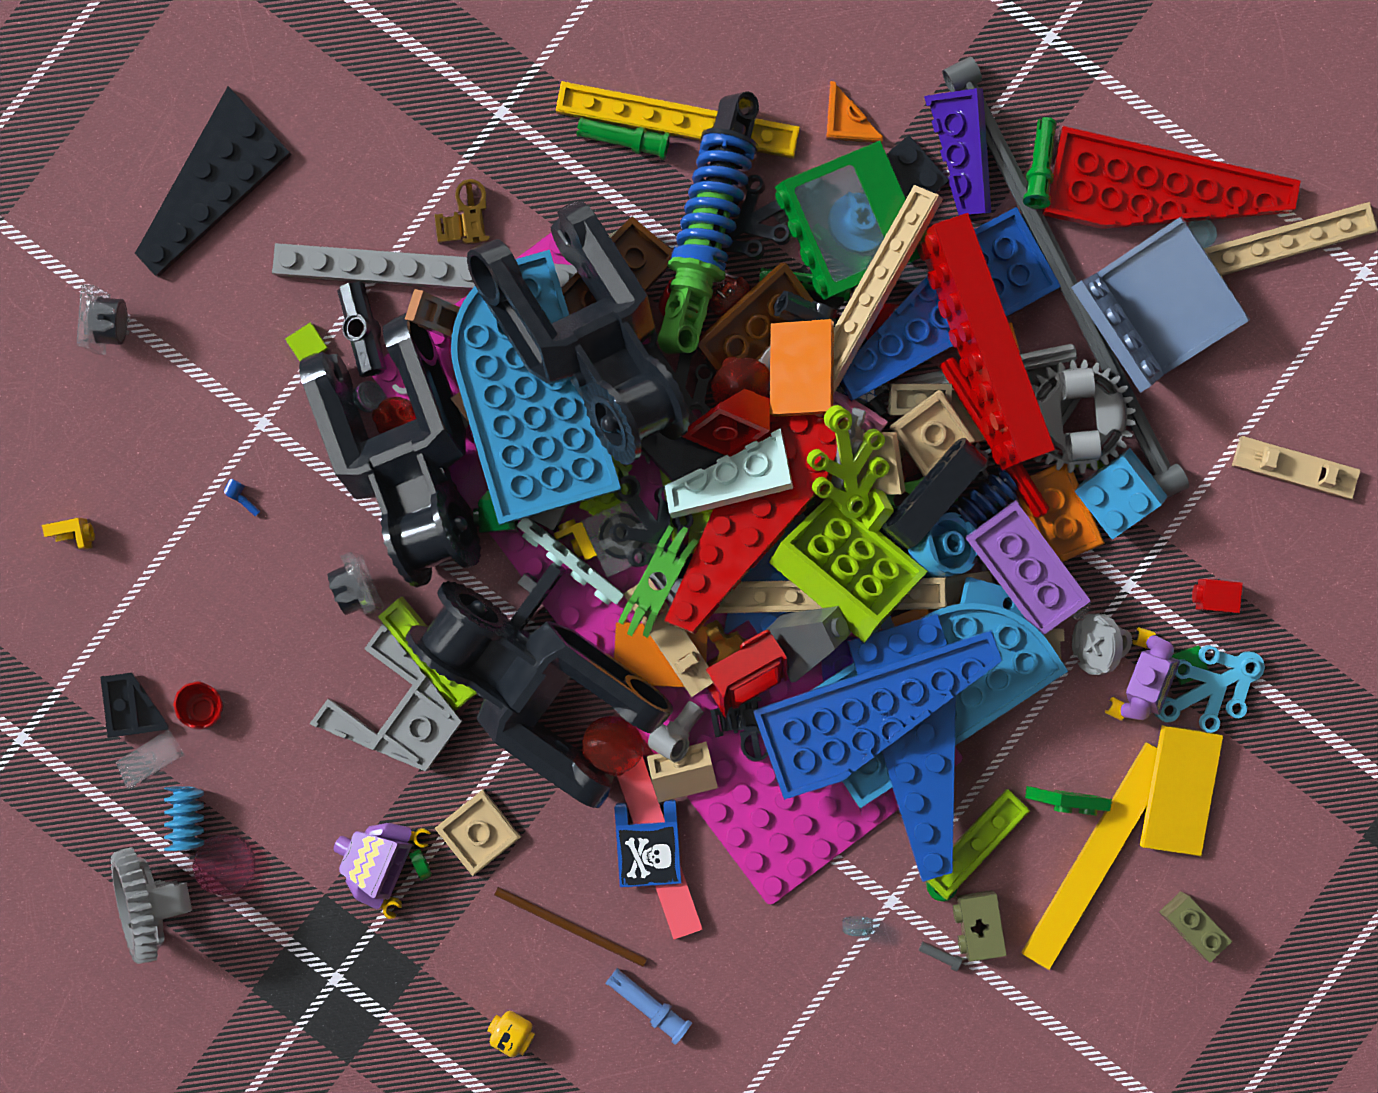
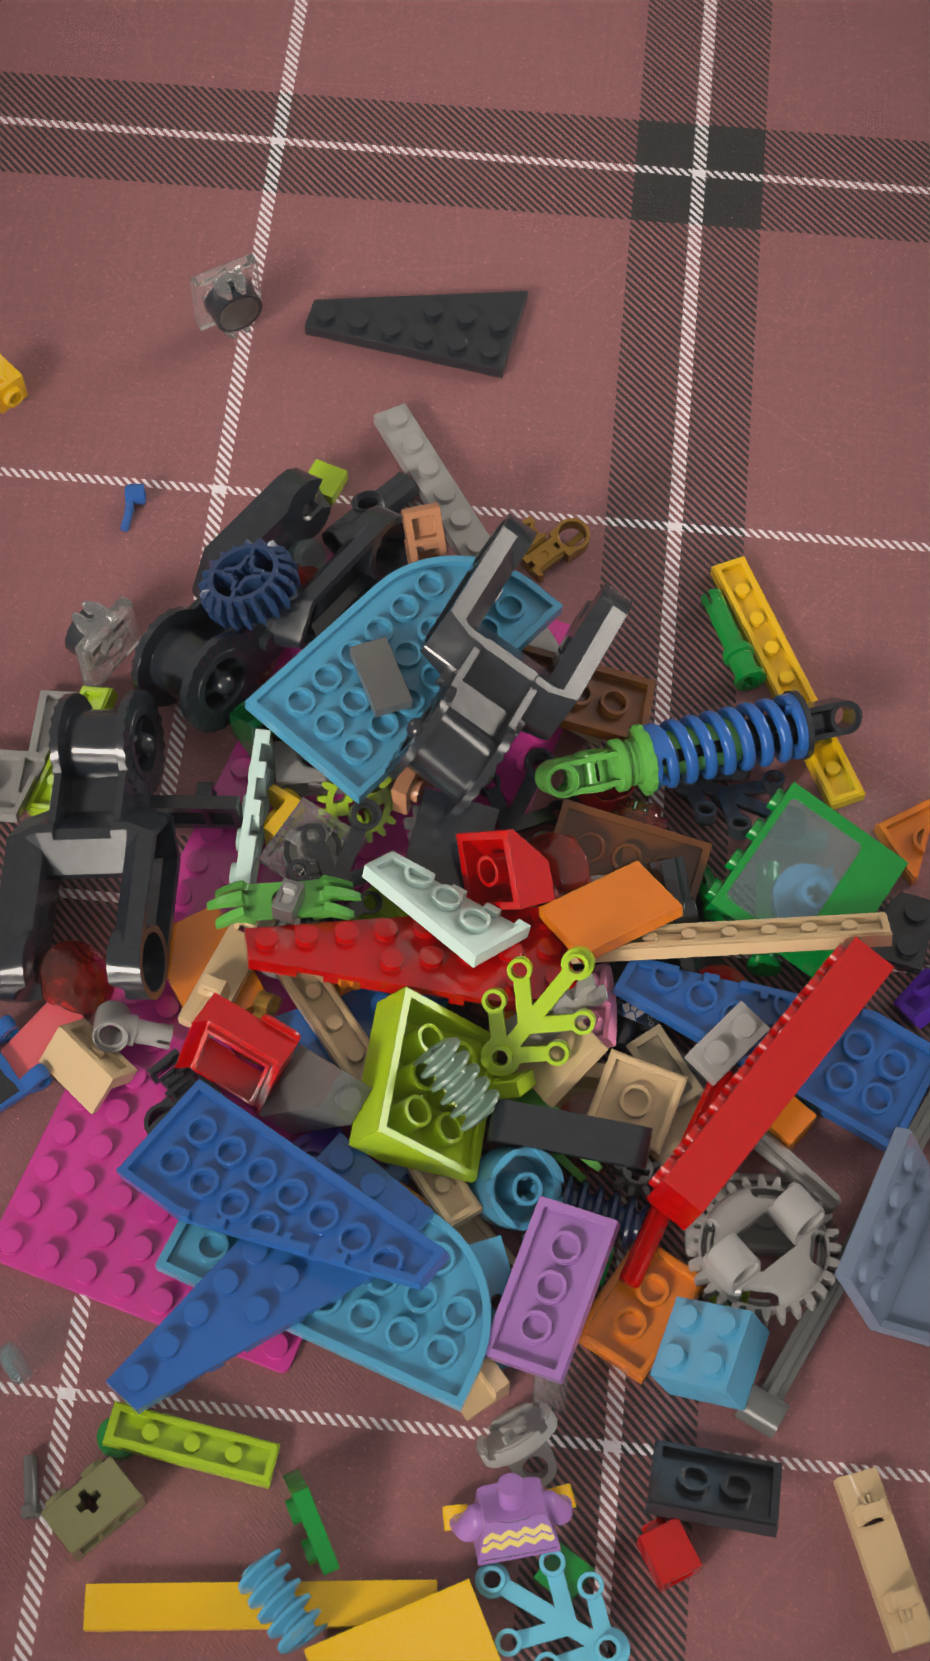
camera: 60 degrees right, 25 degrees down
(384, 452) = (249, 584): none -> dark blue gear
(537, 417) = (380, 677): none -> dark grey tile
(665, 580) = (288, 900): none -> flat silver piece
(867, 548) = (459, 1081): none -> sand green piece
(934, 349) = (727, 1043): none -> light grey plate
(1111, 845) = (280, 1603): none -> dark azure piece
(1199, 543) = (714, 1488): none -> black tile

